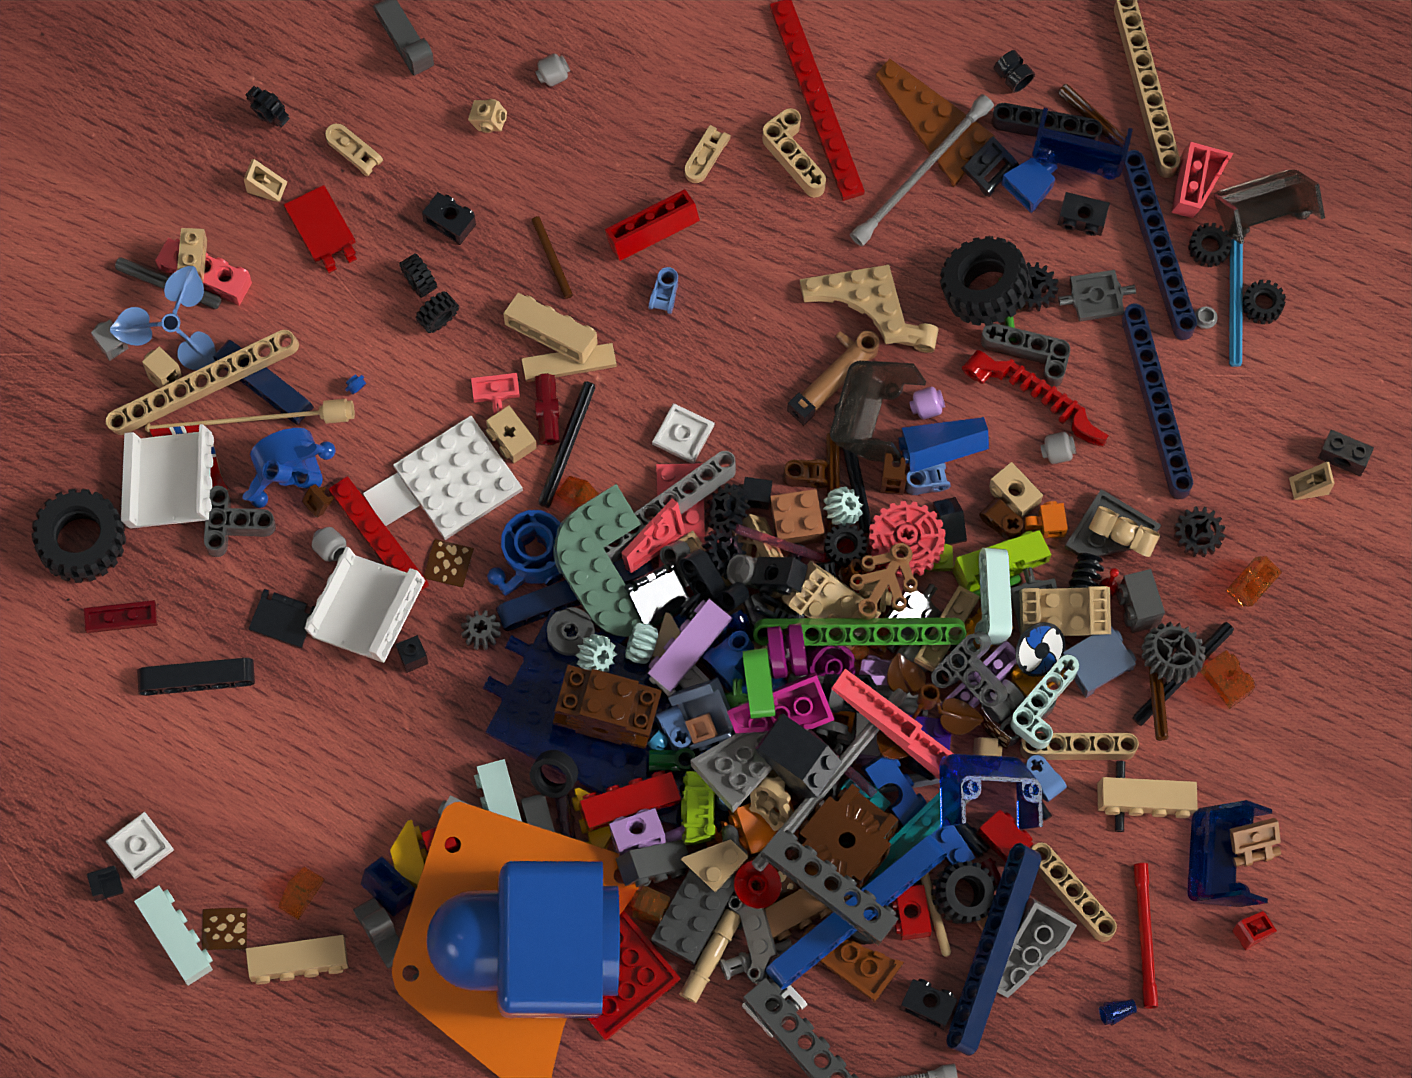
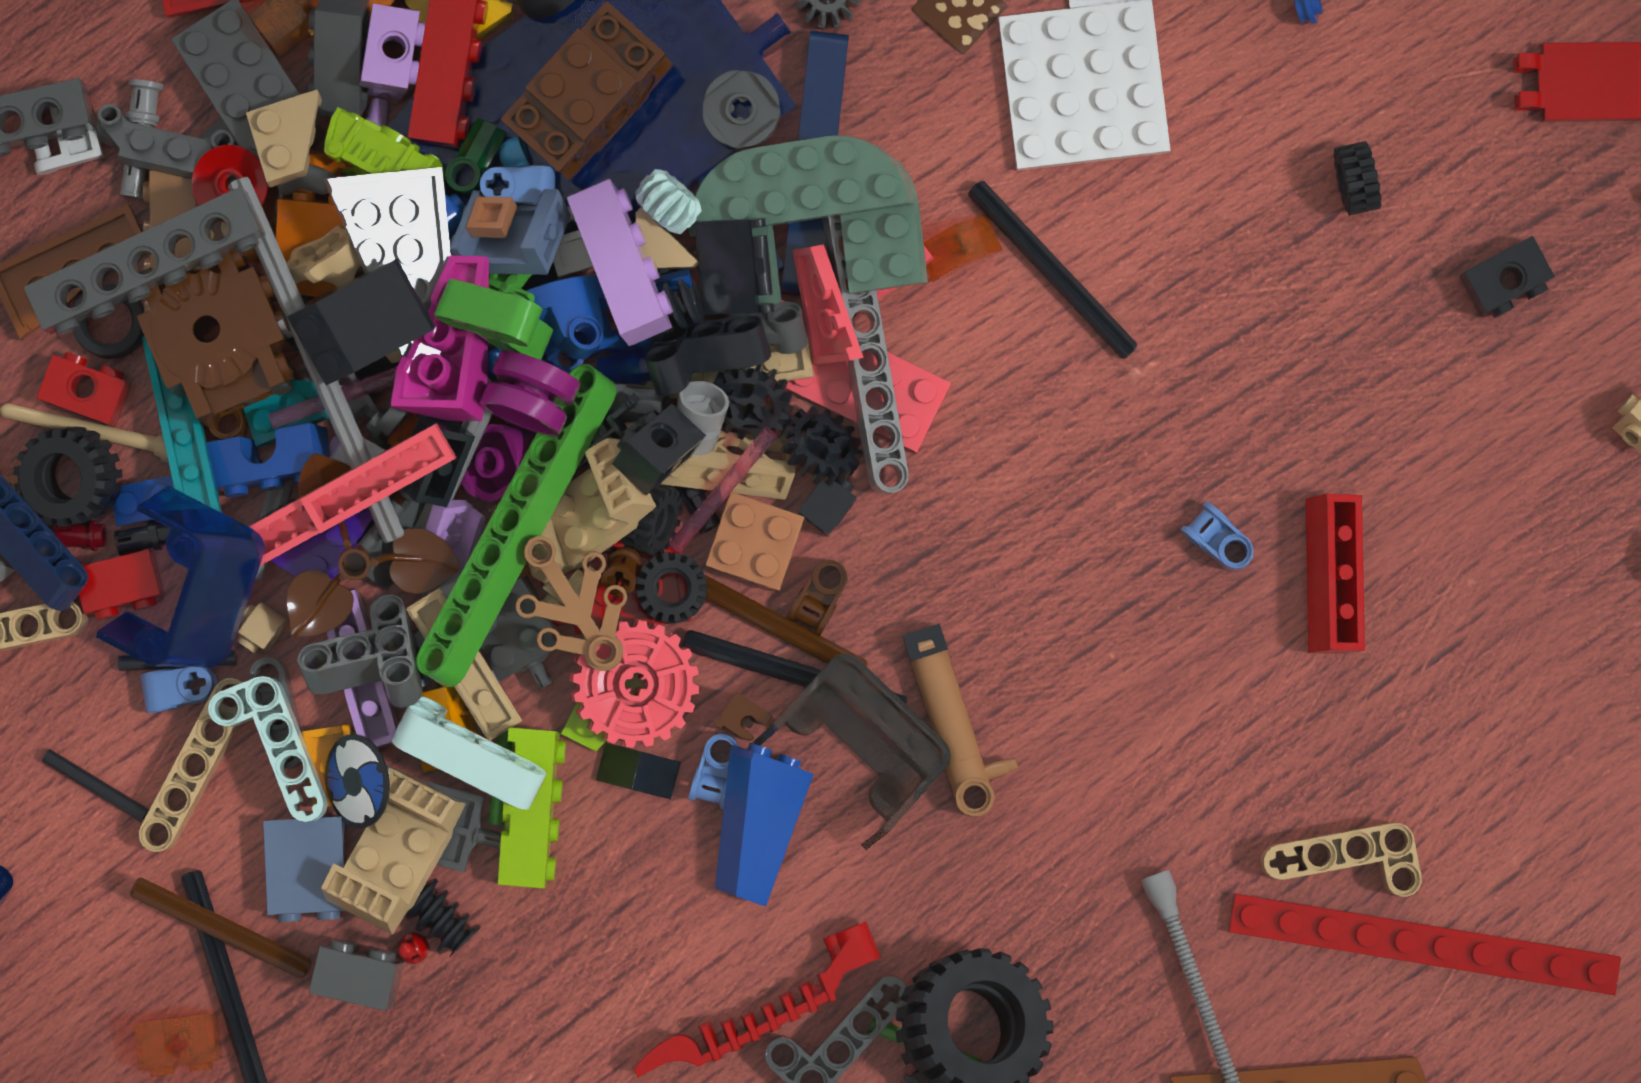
camera: 120 degrees right, 15 degrees up
(418, 275) = (1432, 179): black tyre -> none
(495, 389) = (1192, 206): coral plate -> none
(508, 422) = (1090, 205): tan brick -> none
(535, 570) = (913, 99): blue piece -> none
(547, 409) = (1121, 266): dark red piece -> none
(550, 328) = (1246, 334): tan brick -> none
(553, 260) = (1366, 401): reddish brown bar -> none
(561, 365) = (1181, 339): tan tile -> none
(596, 653) = (683, 124): light aqua gear -> none
(683, 433) = (978, 448): white plate -> none
(705, 155) = (1414, 720): tan plate -> none
(710, 956) = (173, 71): tan piece -> none
(835, 930) = (121, 329): blue beam -> none
(843, 506) = (733, 616): light aqua gear -> none
(865, 291) = (1060, 843): tan plate -> none
(921, 337) = (947, 884): tan piece -> none
(927, 403) = (835, 837): lavender head -> none
(994, 731) = (268, 653): reddish brown sticker -> none
(1000, 517) = (603, 846): reddish brown piece -> none
(1002, 711) = (315, 710): light grey wheel -> none
(1013, 478) = (610, 906): tan brick -> none
(1050, 520) = (555, 918): orange brick -> none
(1058, 448) = (661, 994): light grey head -> none
(1086, 541) = (497, 1001): dark grey plate -> none
(1124, 531) = (473, 1011): tan piece -> none
(1147, 796) = (66, 819): tan brick -> none
(1186, 660) = (265, 968): dark grey gear -> none

